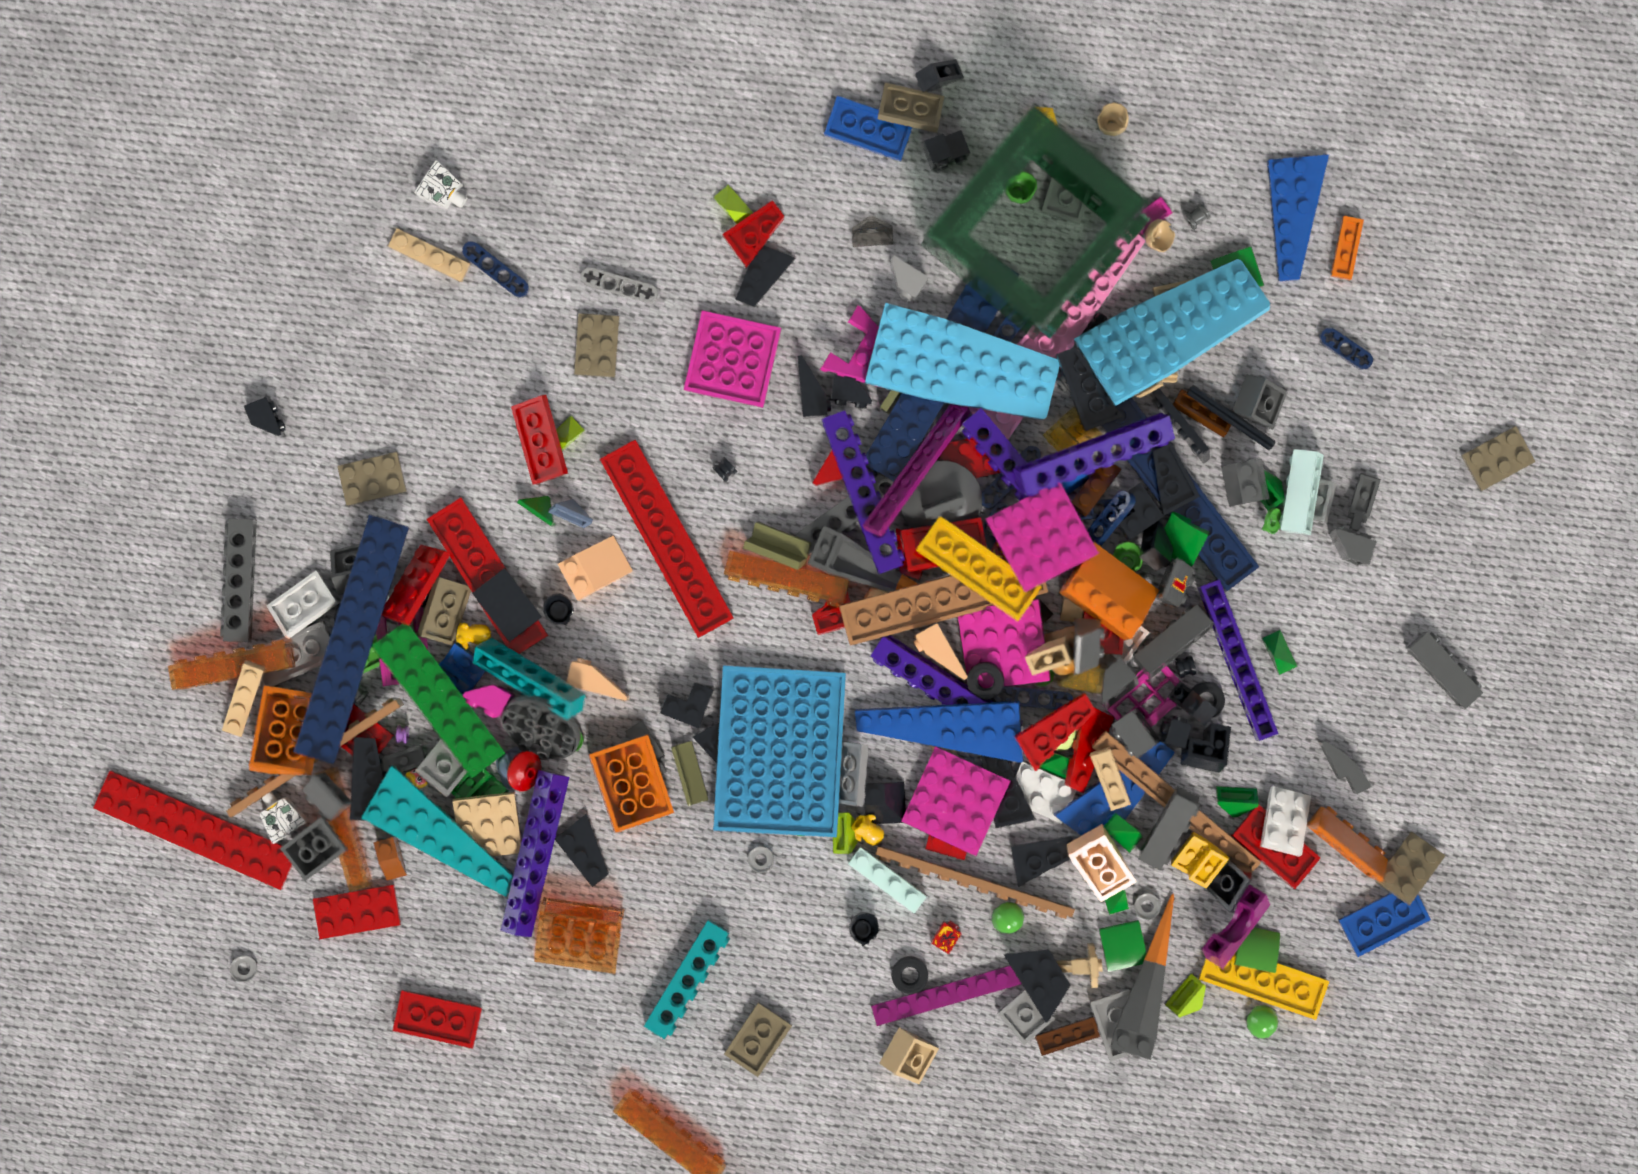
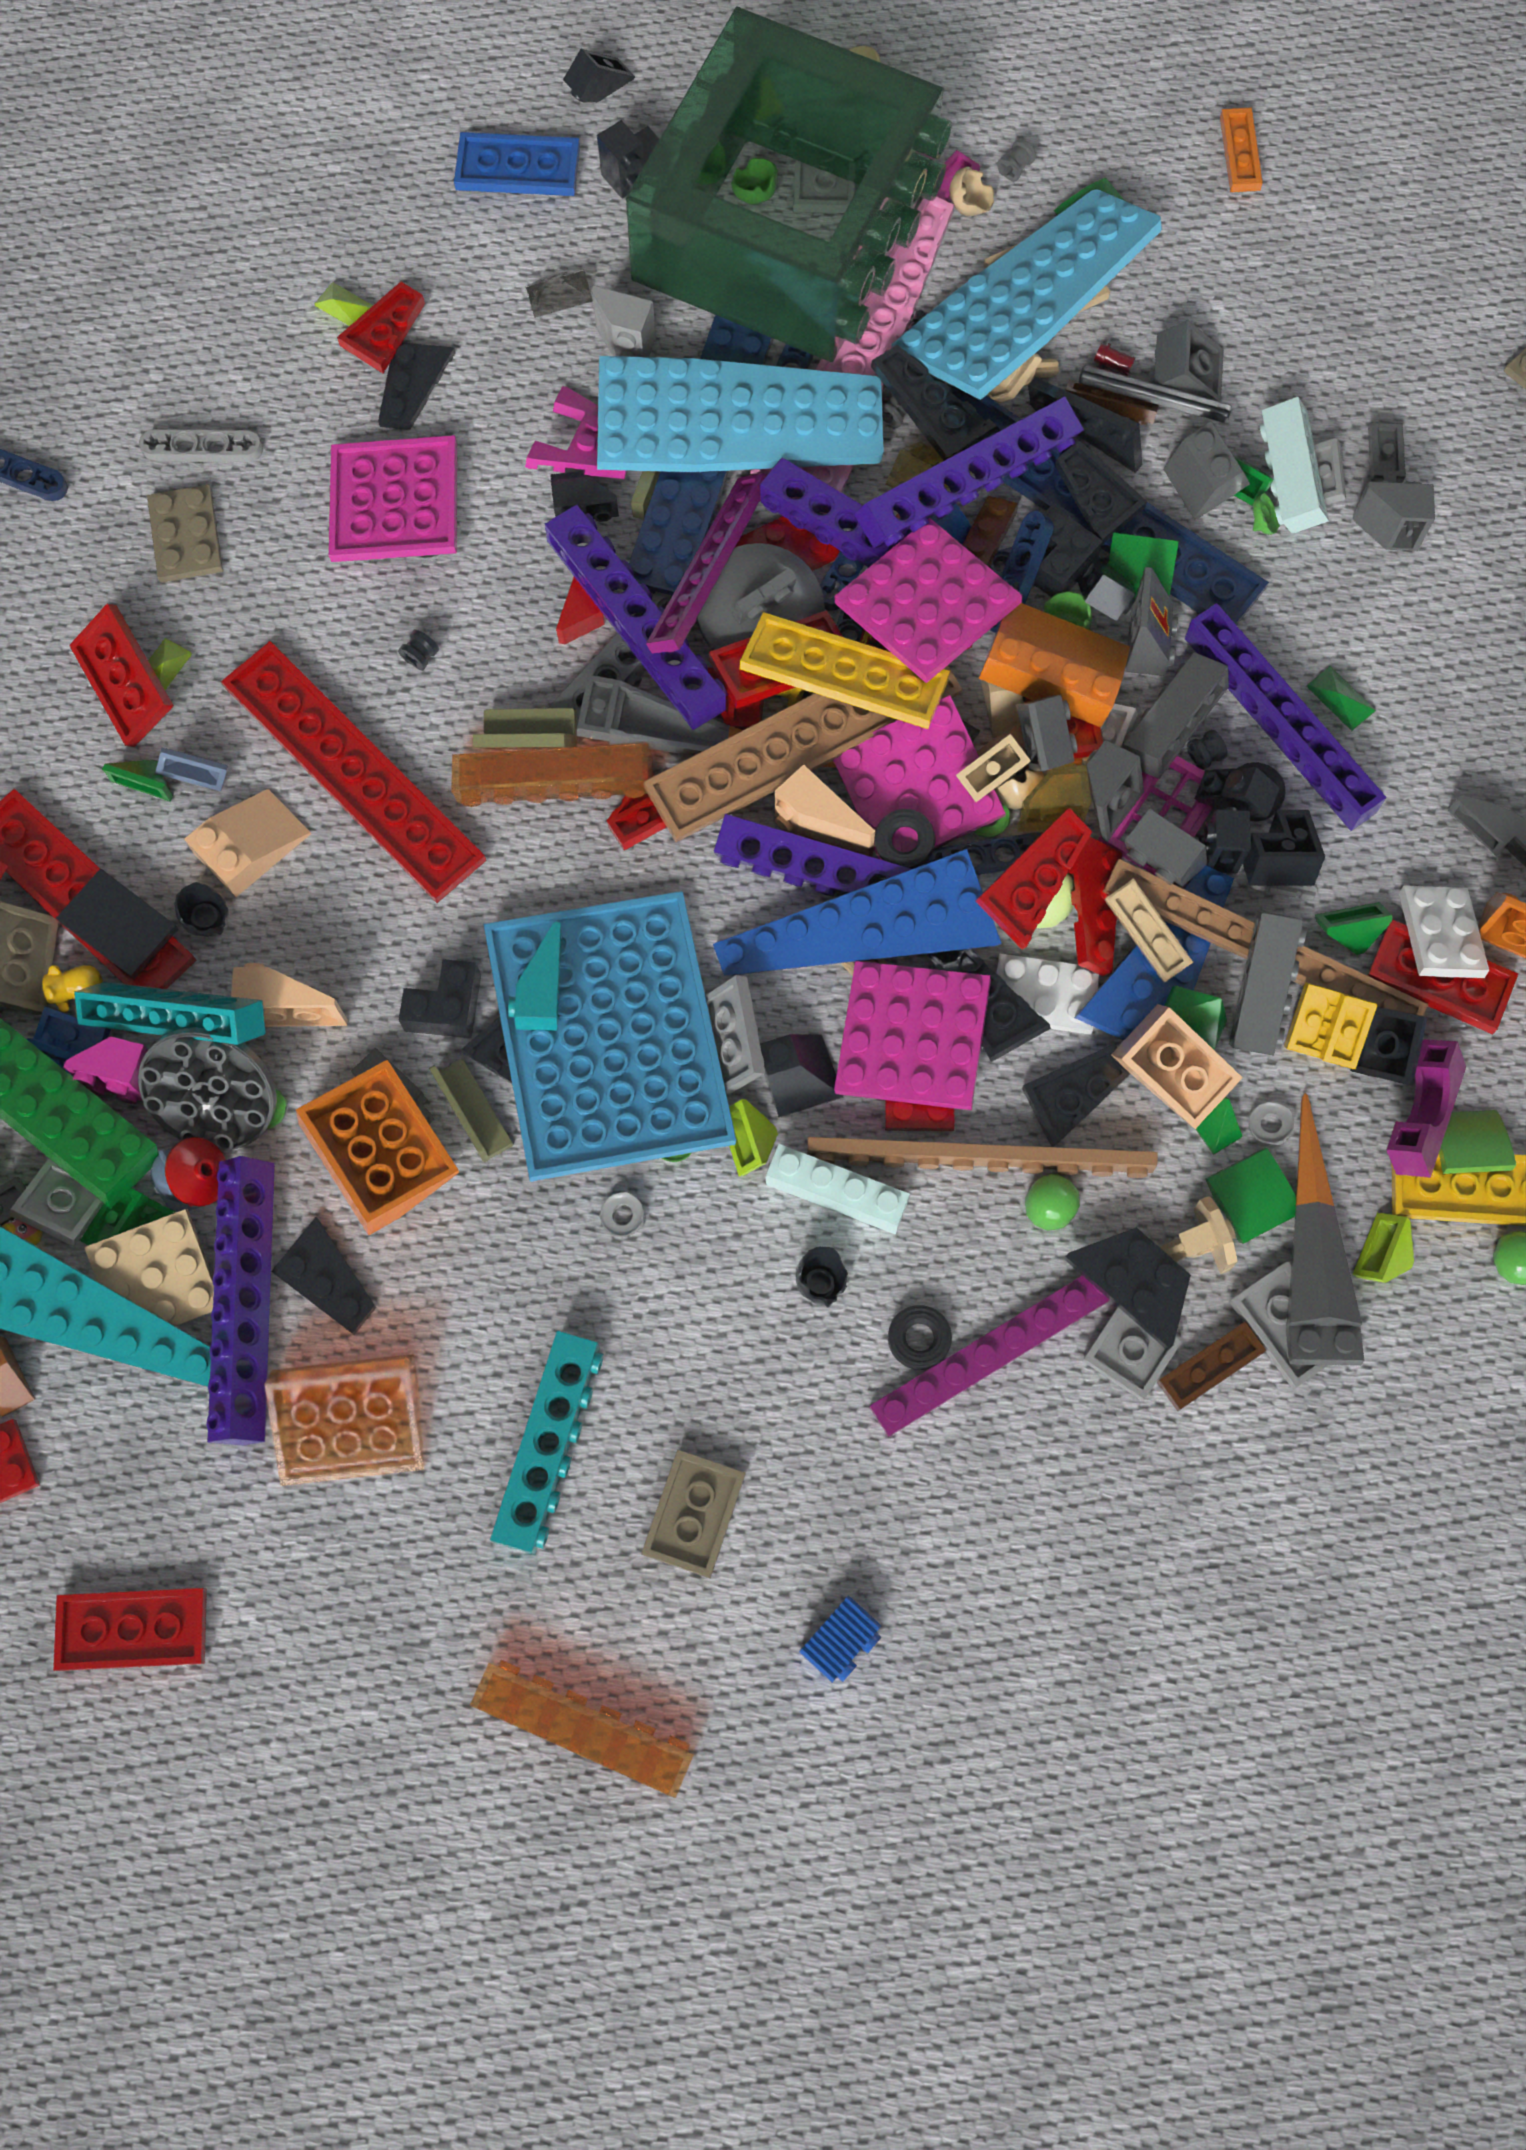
camera: 15 degrees left, 15 degrees down
(745, 720) = (538, 987): none -> teal slope
(812, 395) = (523, 511): black slope -> none
(820, 1128) = (841, 1640): none -> blue brick
(869, 831) = (783, 1120): yellow animal -> none
(908, 1056) = (957, 1470): tan slope -> none
(910, 107) = (566, 119): dark tan plate -> none
(946, 936) = (961, 1256): red brick -> none
(1056, 765) = (1053, 942): green slope -> none
(1214, 382) = (1114, 359): none -> dark red pin
(1294, 200) = (1146, 114): blue wing -> none
(1336, 335) = (1296, 267): dark blue beam -> none

